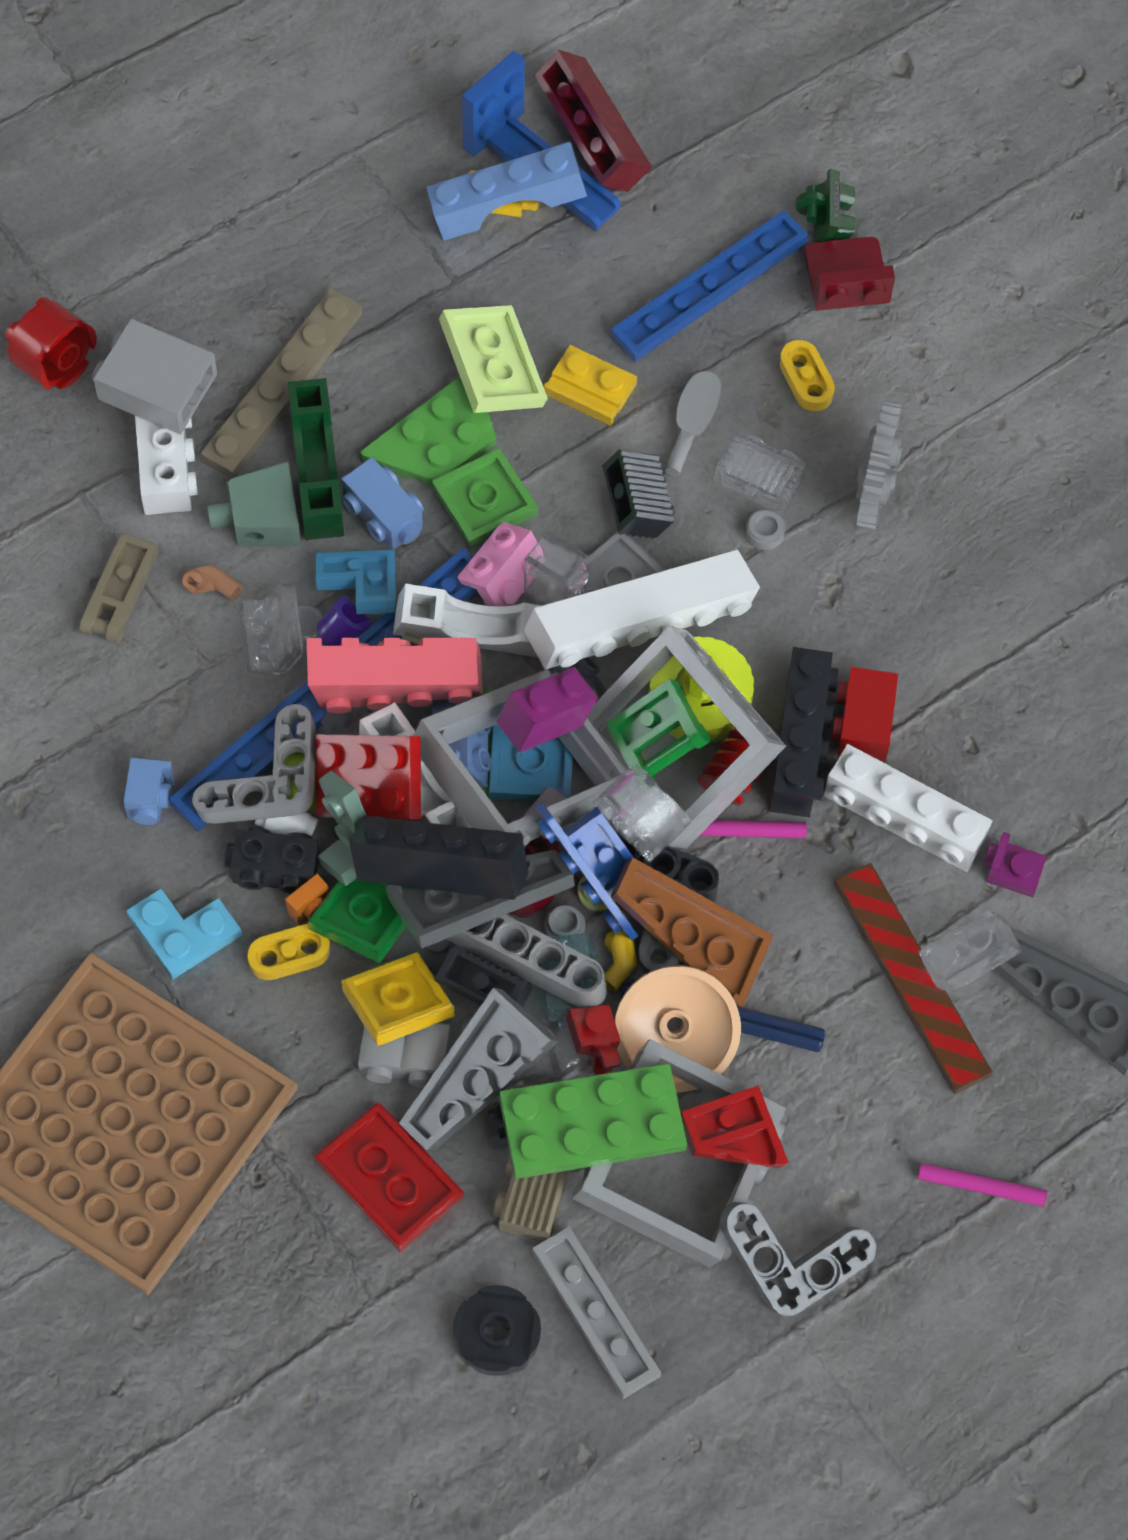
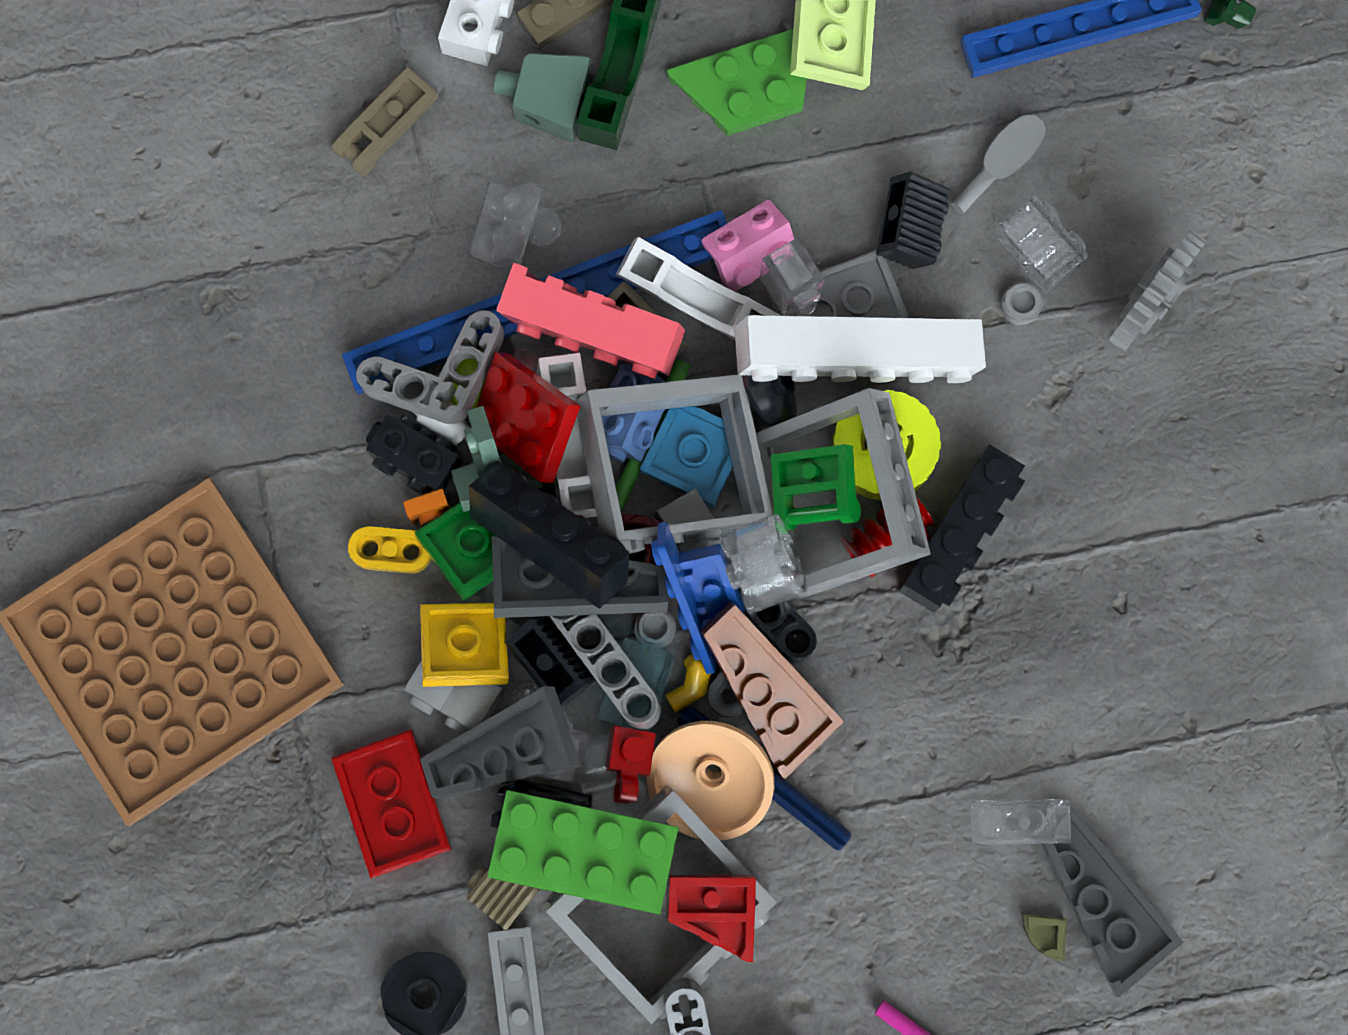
camera: 25 degrees right, 15 degrees up
(148, 790) = (326, 337): medium blue brick -> none
(181, 942) = (296, 496): medium azure plate -> none
(210, 579) = (473, 145): nougat arm -> none
(335, 625) = (566, 247): dark purple plate -> none
(366, 571) = (618, 196): dark azure plate -> none
(384, 506) = (666, 144): medium blue brick -> none
(484, 496) = (765, 164): bright green plate -> none
(546, 709) = (716, 423): magenta brick -> none
(590, 385) = (918, 85): yellow plate -> none
(767, 829) = (878, 606): dark pink bar -> none
(808, 378) = (1133, 161): yellow plate -> none
(848, 273) = (1223, 65): dark red bracket -> none
(866, 712) = (1032, 537): red brick -> none
(901, 962) = (954, 790): reddish brown tile -> none
(907, 808) = (1028, 648): white brick -> none
(1014, 866) = (1105, 746): magenta bracket -> none
(1038, 1048) = (1046, 934): none -> olive tile

